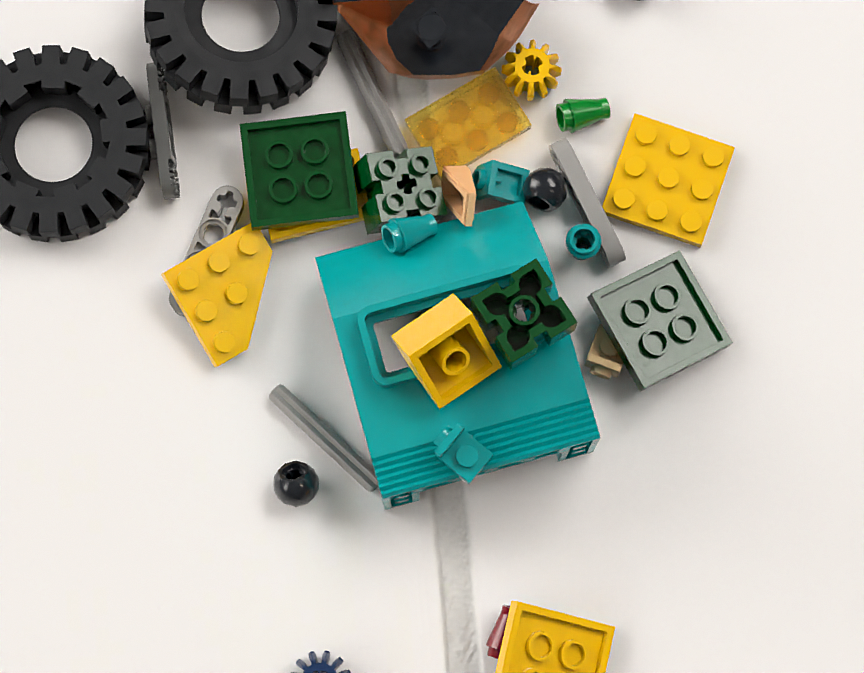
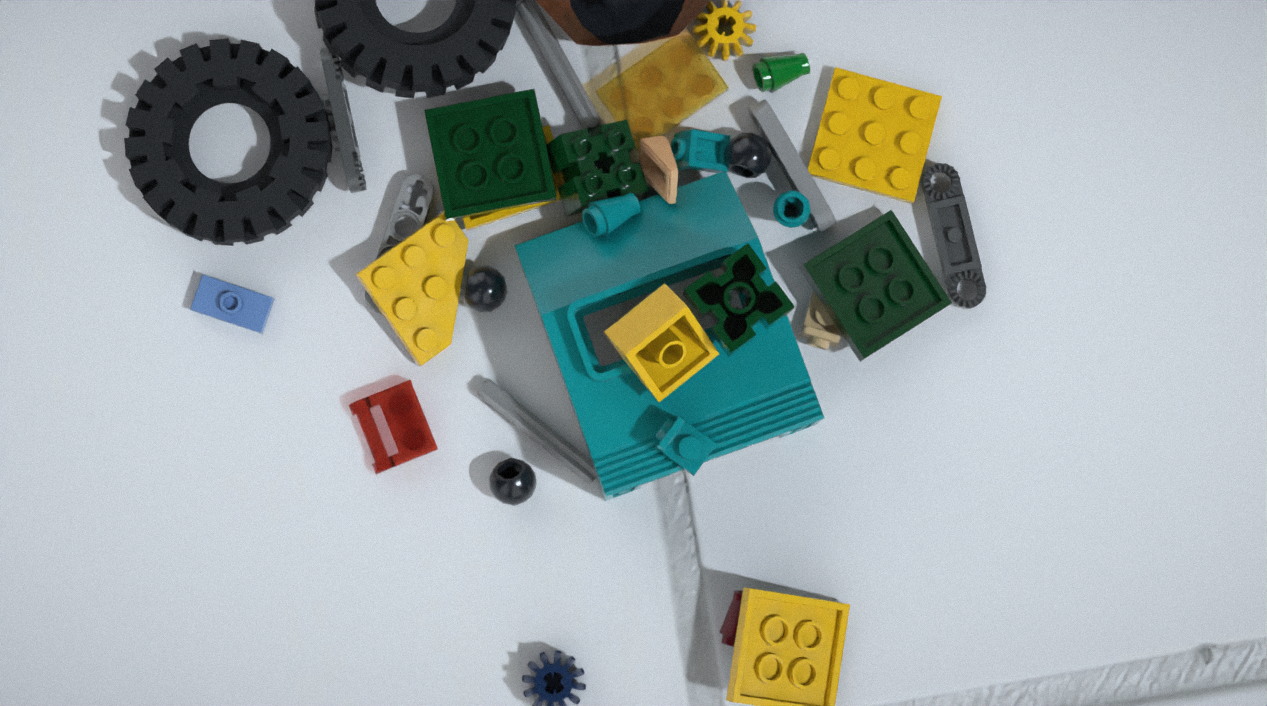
camera: 15 degrees left, 5 degrees up
(42, 296) = (232, 304): none -> medium blue plate
(197, 420) = (405, 423): none -> clear red plate
(284, 298) = (485, 289): none -> black piece
(738, 280) = (954, 236): none -> dark grey plate

